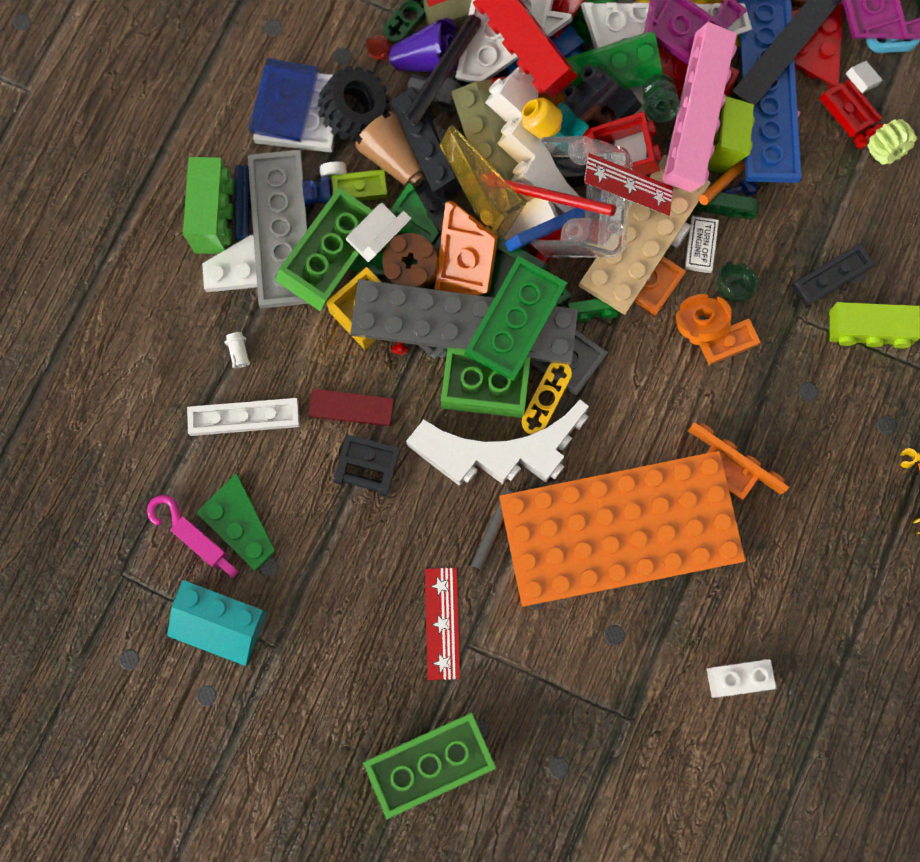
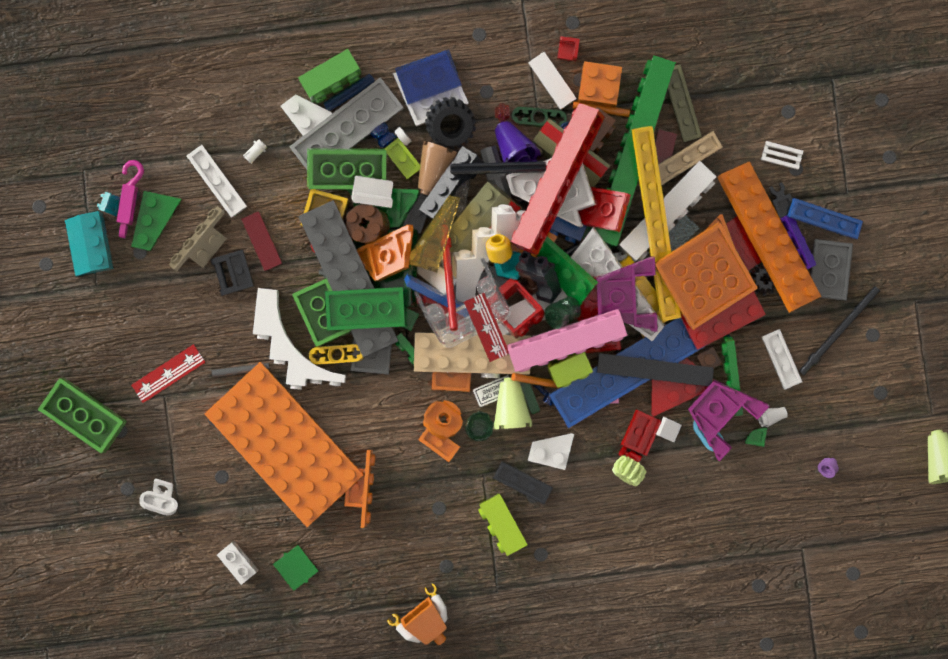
camera: 55 degrees right, 10 degrees up
(183, 563) = (109, 203): none -> teal tile
(307, 479) = (202, 244): none -> dark tan bracket
(600, 733) = (159, 501): none -> white bracket
(736, 227) = (511, 406): none -> yellowish green cone
(785, 610) = (295, 567): none -> green piece
(814, 220) = (552, 451): none -> white wing

